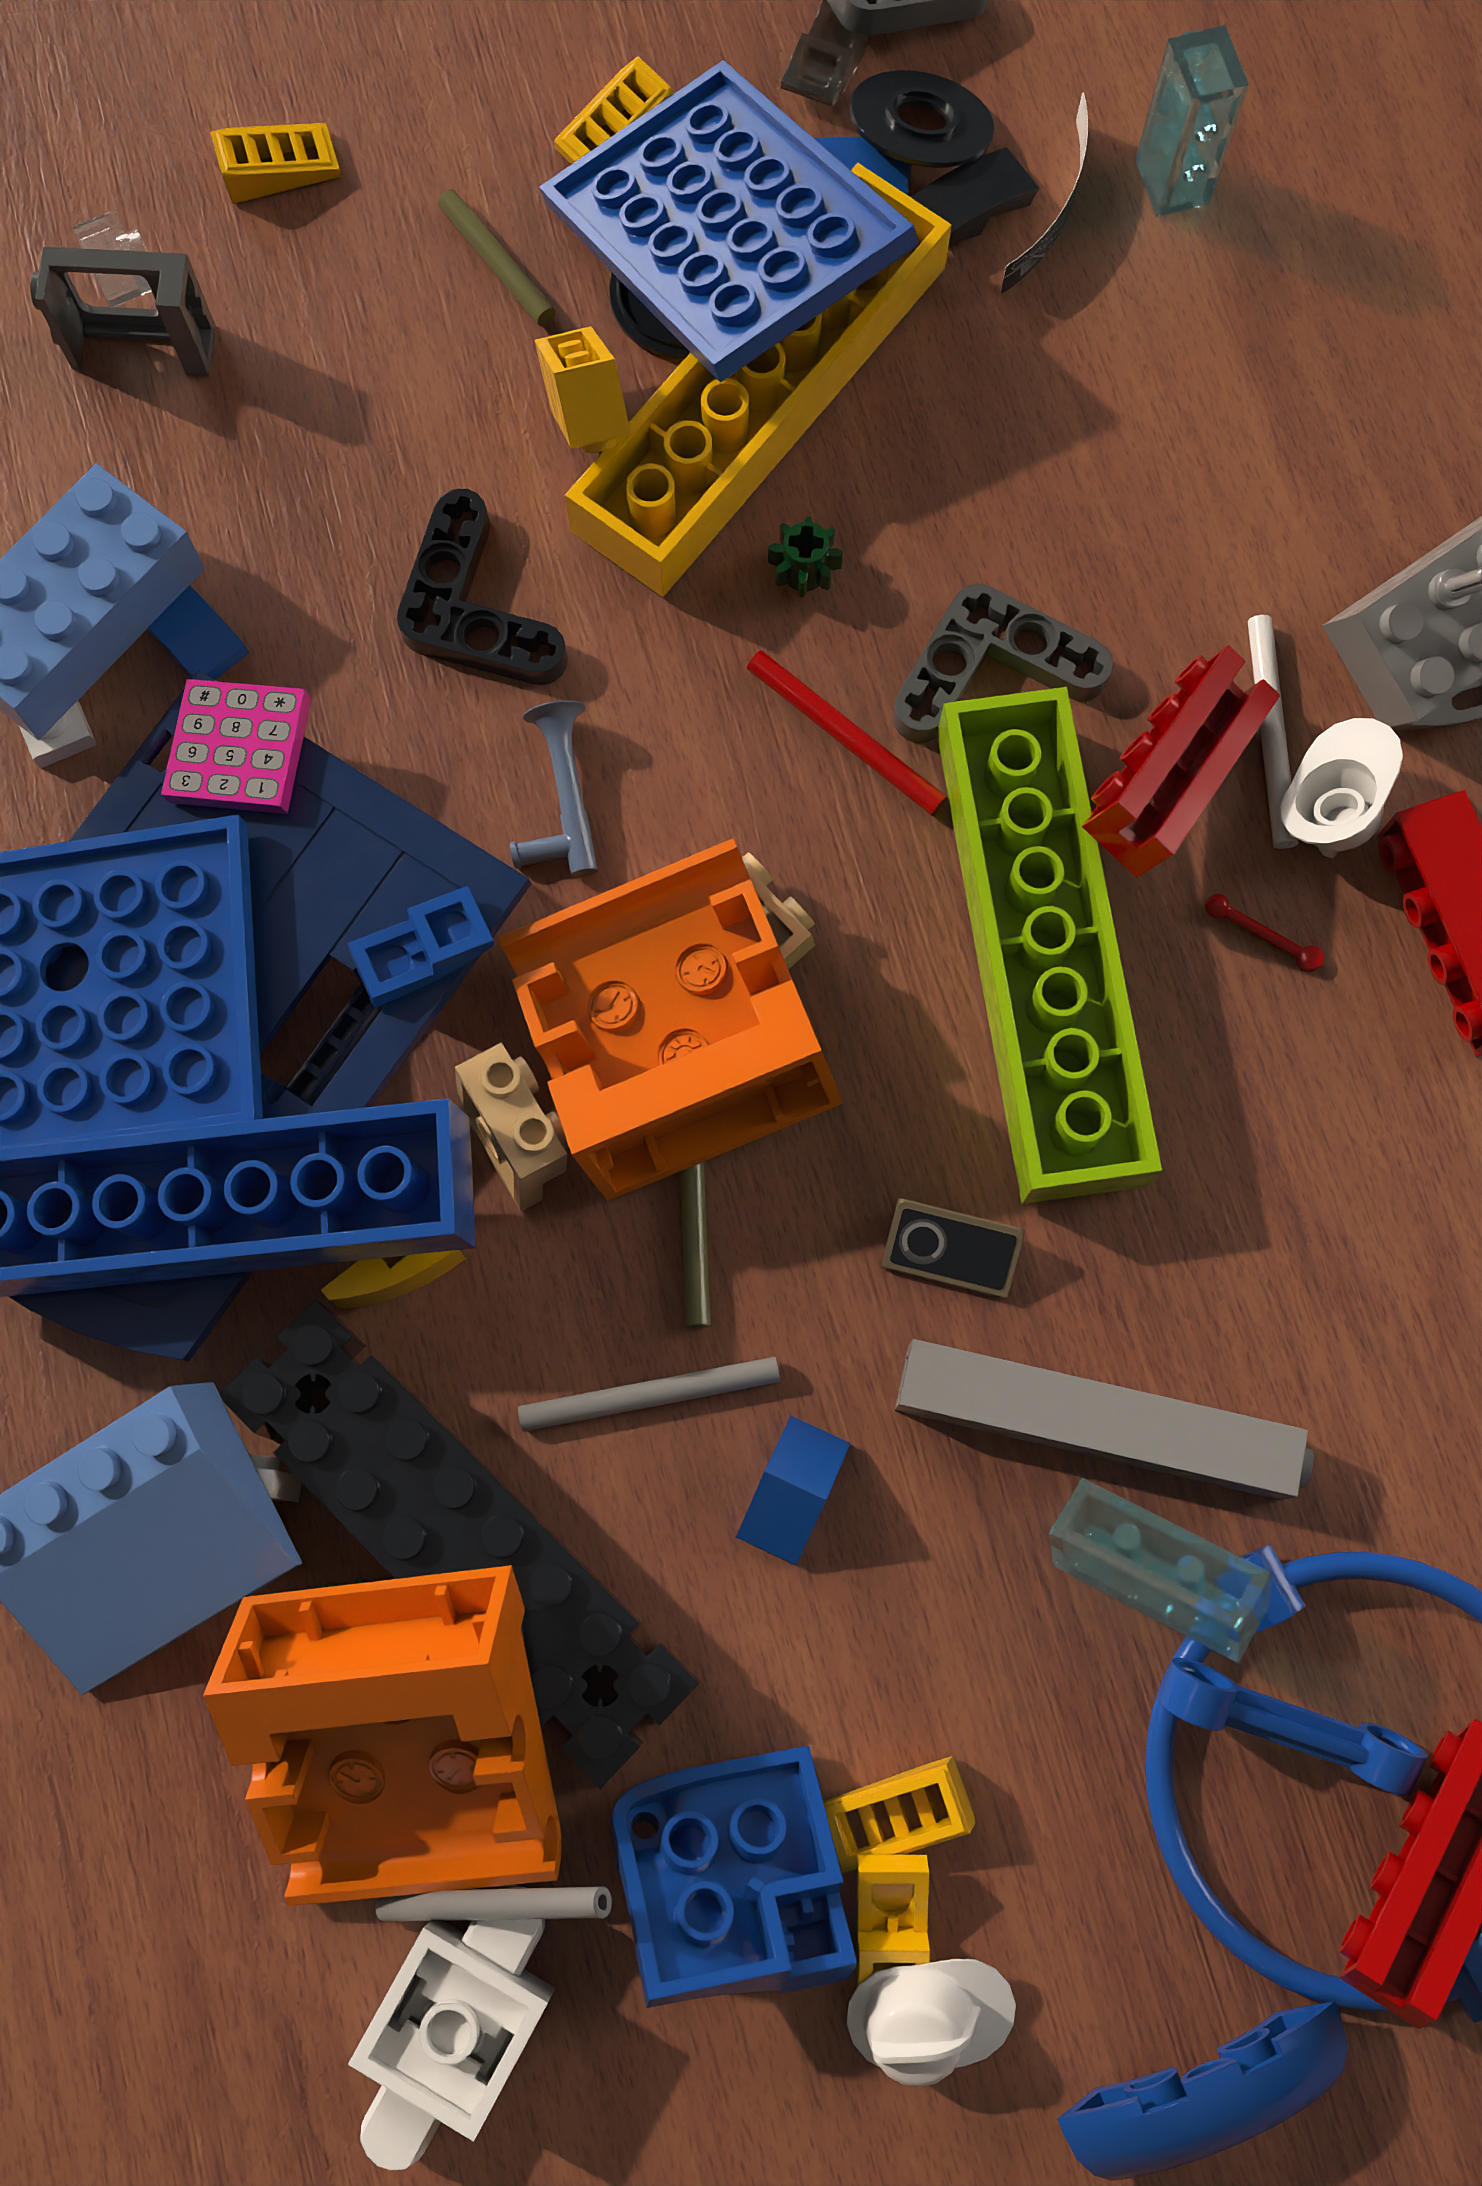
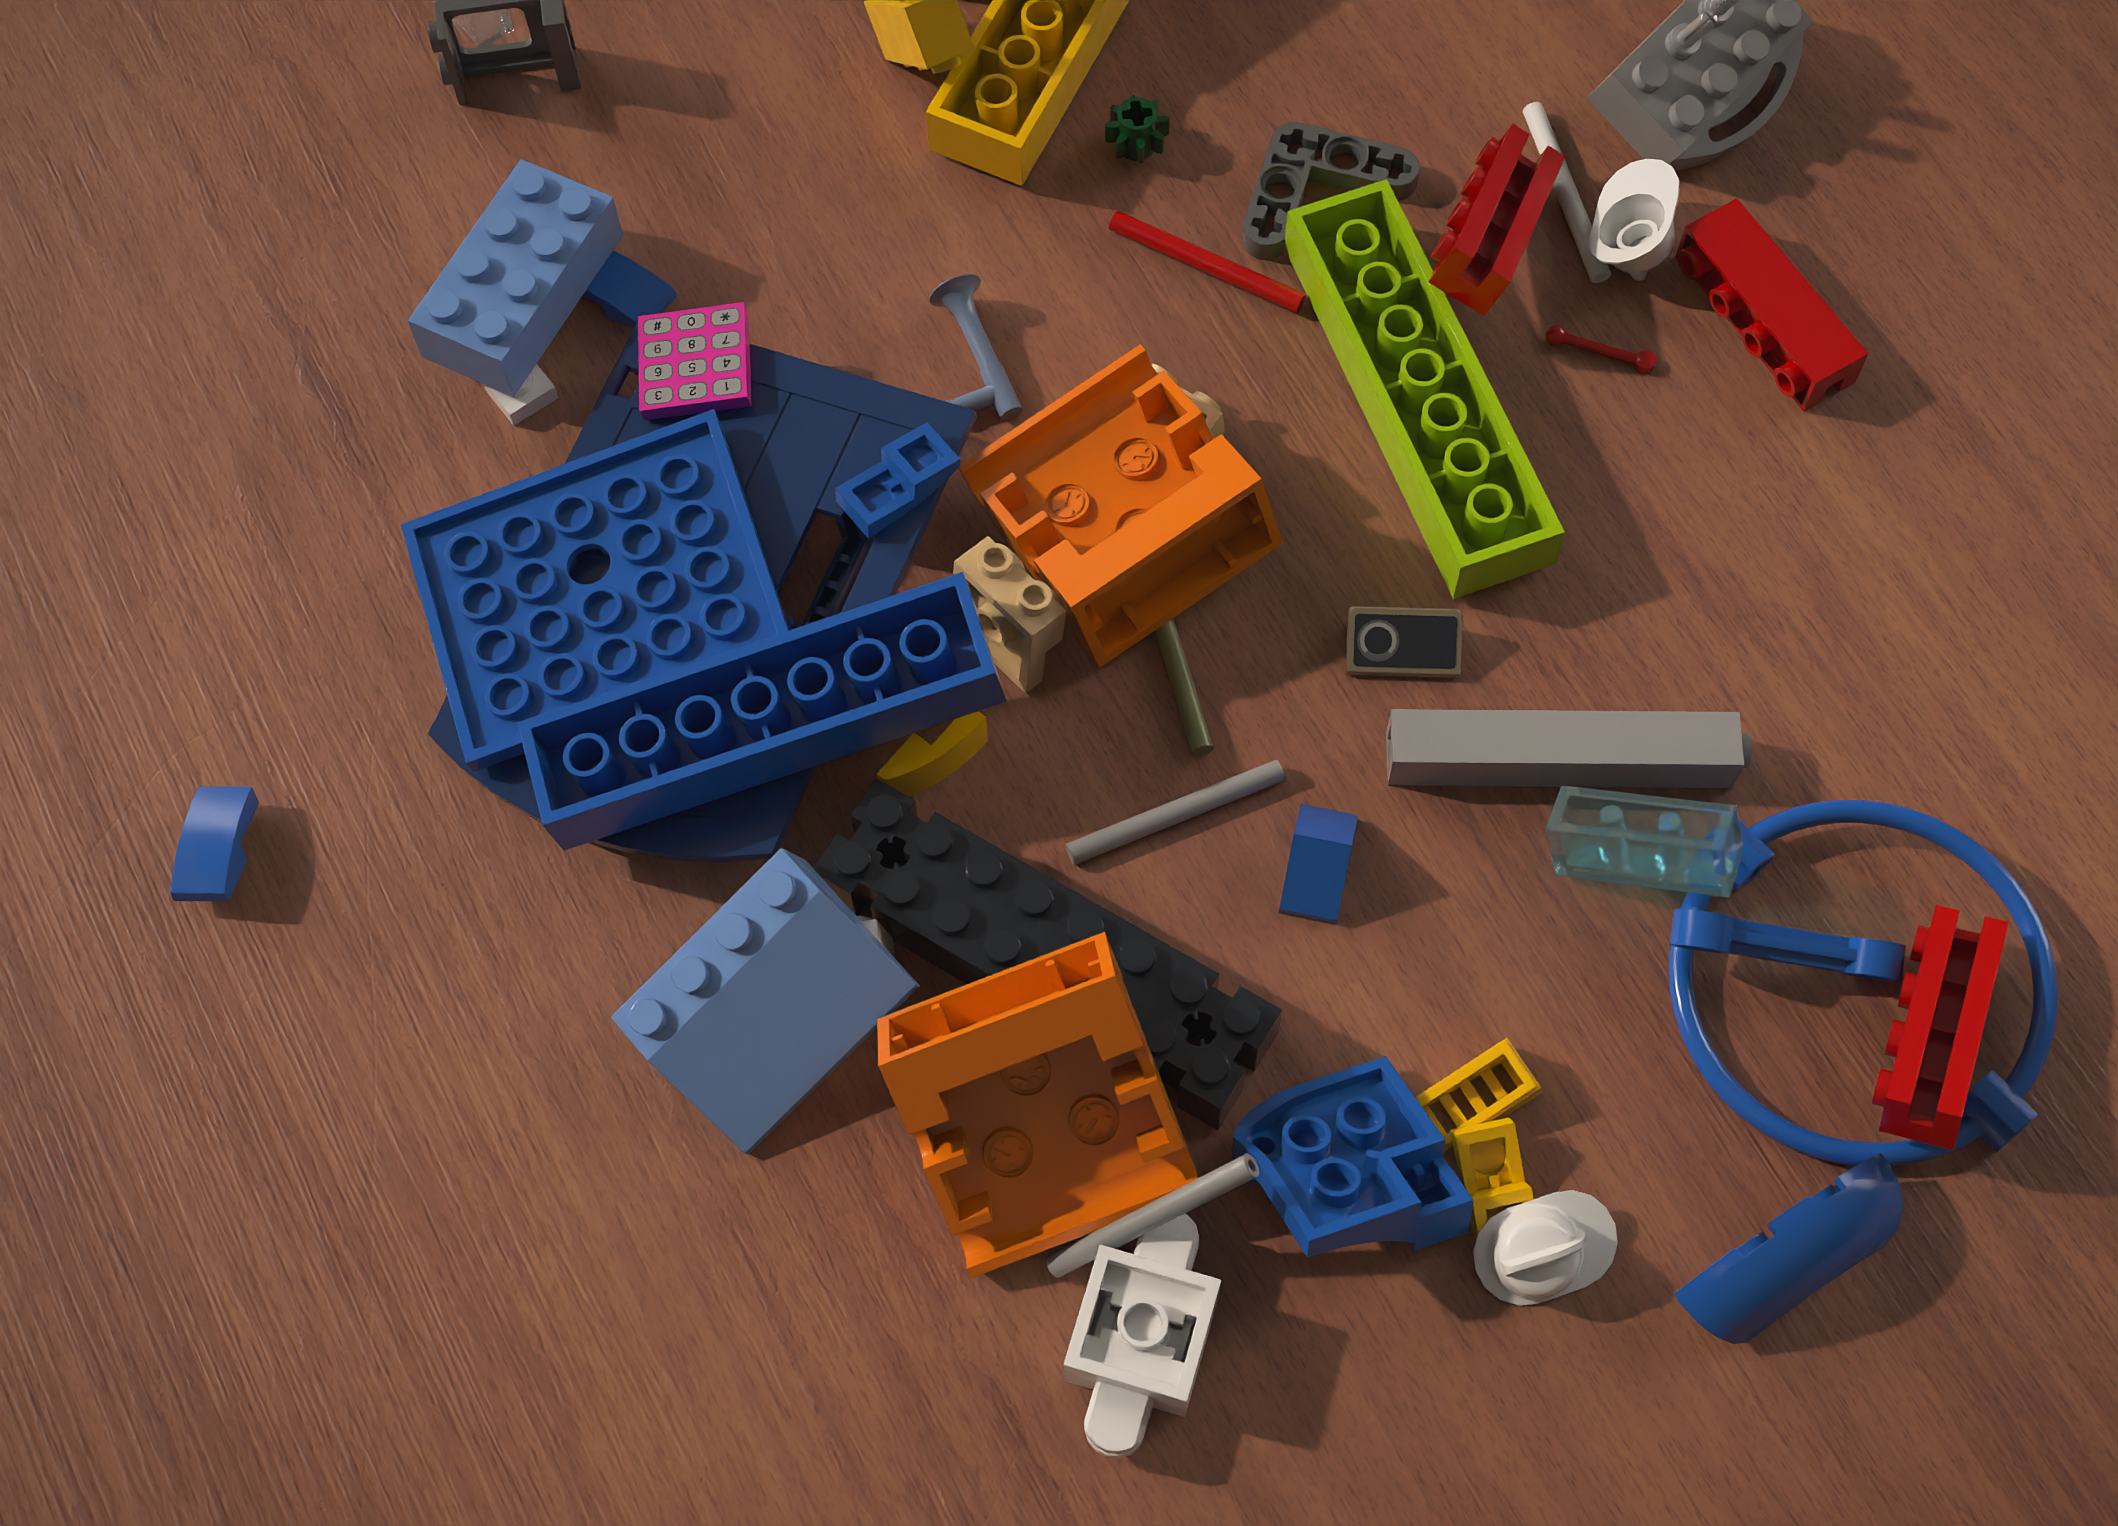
camera: 10 degrees left, 10 degrees down
(457, 617) = (849, 234): black beam -> none

